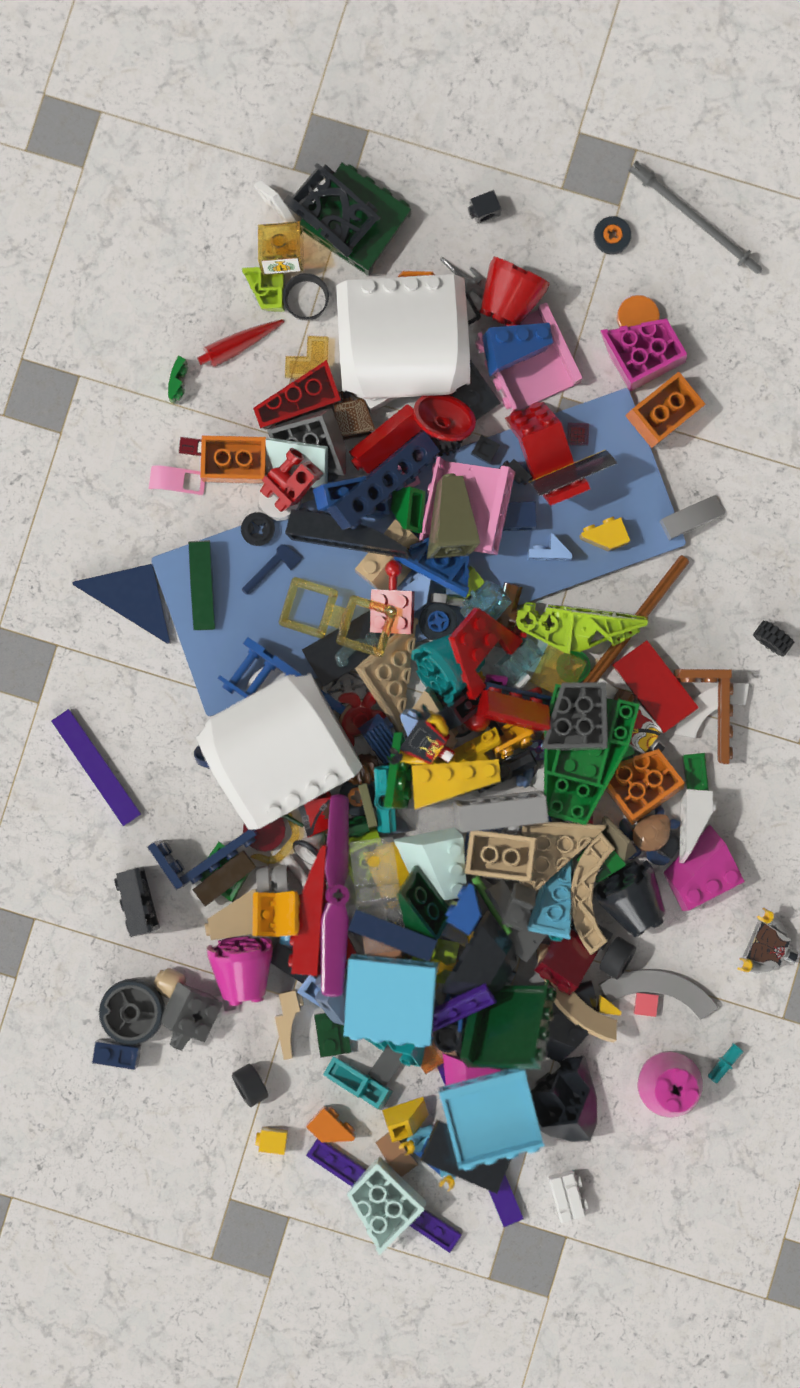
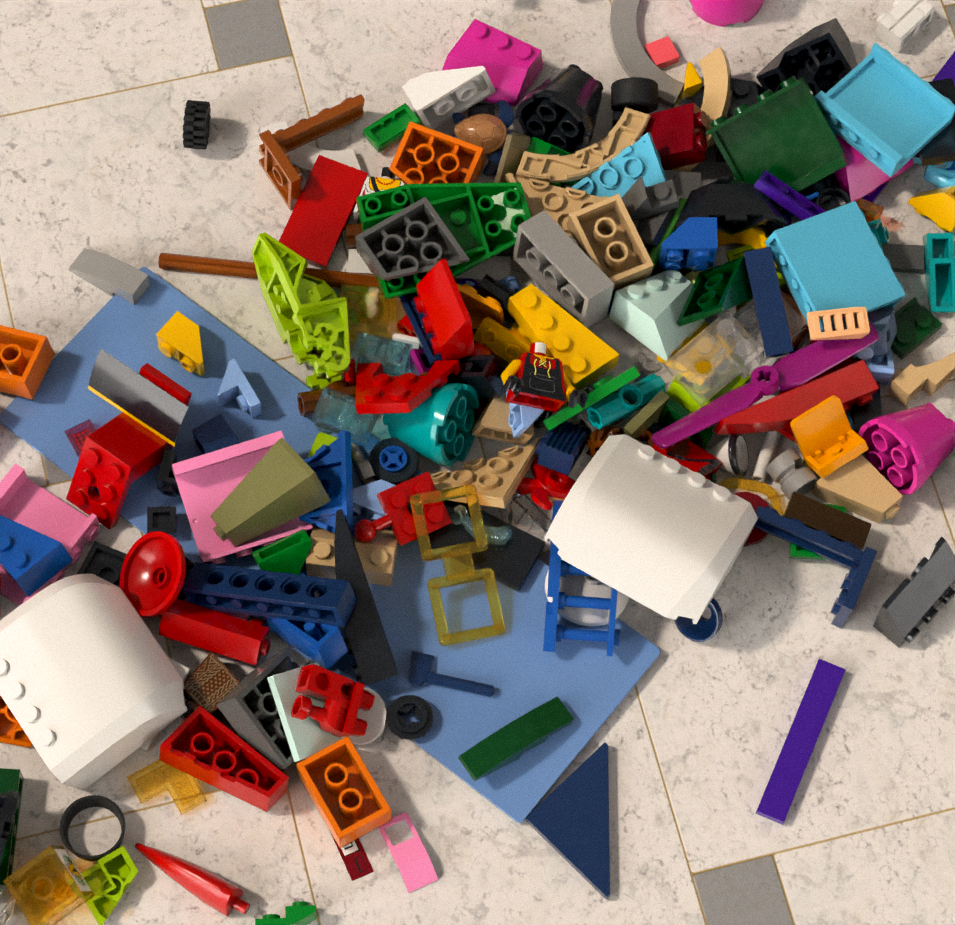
camera: 120 degrees left, 20 degrees down
(343, 986) = (855, 318): none -> light nougat slope

